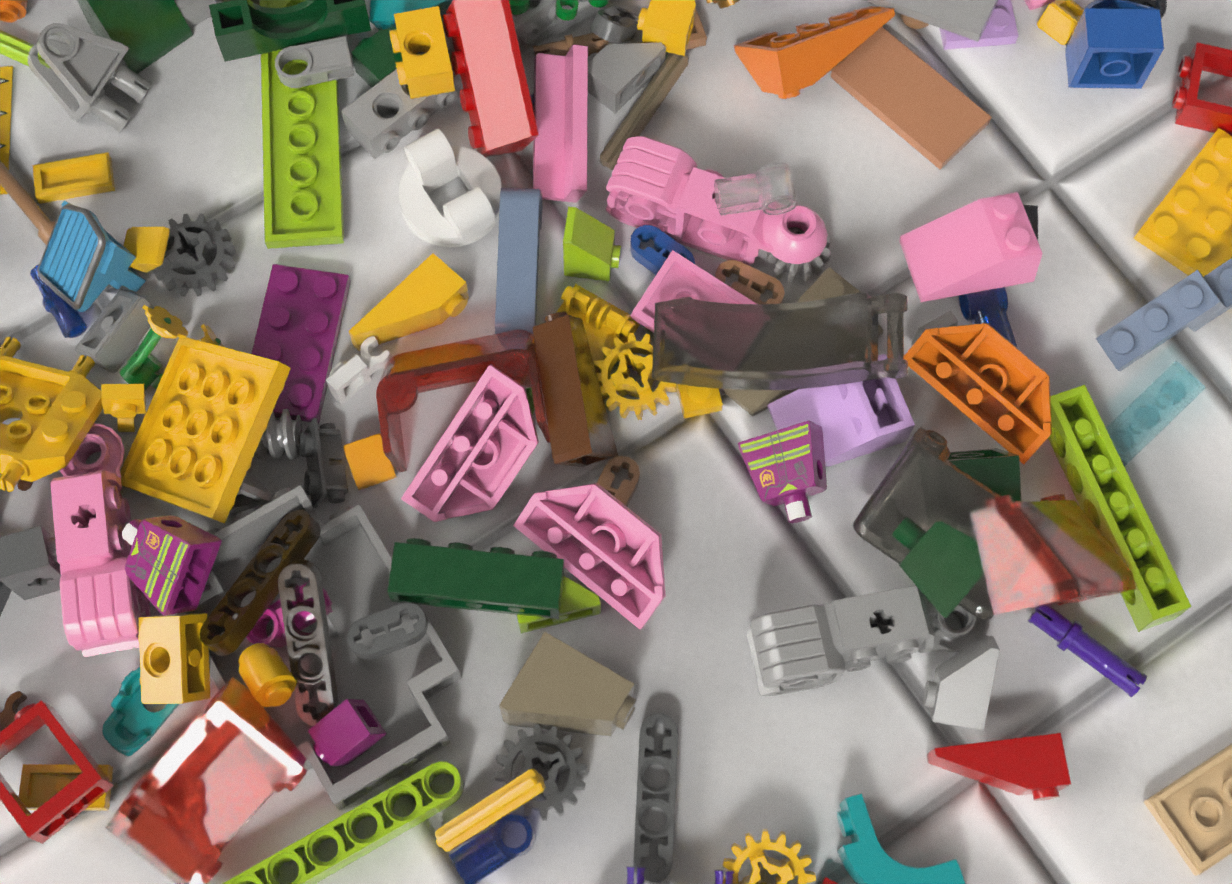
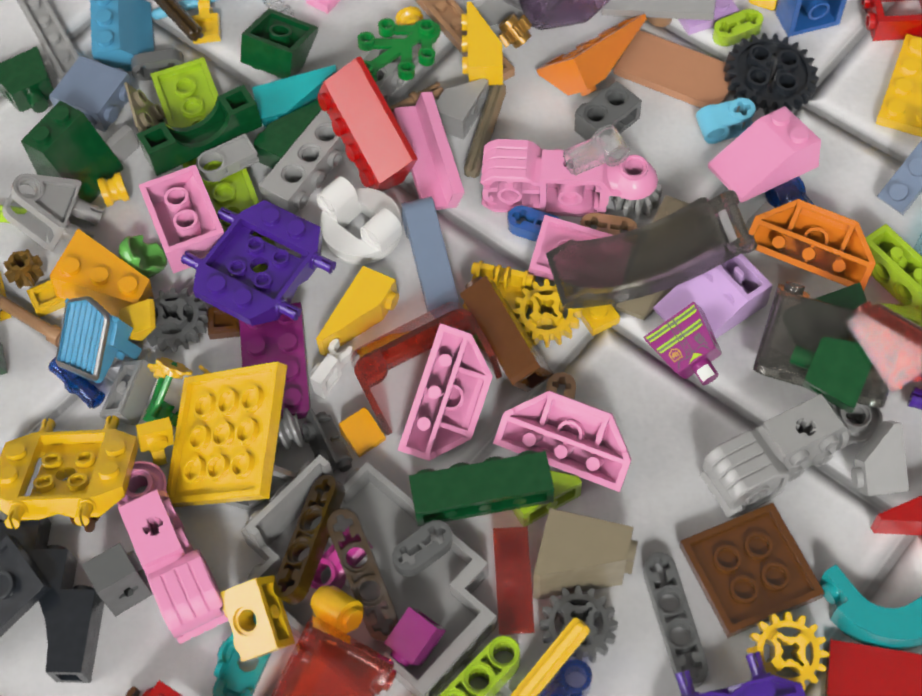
camera: 10 degrees left, 10 degrees down
(35, 137) = (23, 268): none -> pearl gold gear
(116, 176) = (96, 272): none -> light orange wedge
(169, 62) = (113, 189): none -> yellow wheel
(170, 561) = (234, 538): magenta torso -> none
(177, 163) = (145, 258): none -> bright green hair
(237, 126) = (182, 215): none -> bright pink slope
(251, 272) = (222, 324): none -> reddish brown tile
(293, 192) = (227, 273): none -> dark purple piece
(422, 32) = (310, 127): yellow brick -> none
(482, 692) = (513, 580): none -> clear red slope
(589, 247) = (479, 231): lime slope -> none
(615, 24) = (445, 75): dark grey beam -> none
(764, 766) = (751, 569): none -> reddish brown plate
(804, 140) = (610, 107): none -> dark grey brick
(942, 183) = (723, 121): none -> medium azure piece
(1008, 57) = (736, 25): none -> lime beam
(1055, 151) = (791, 75): none -> black gear

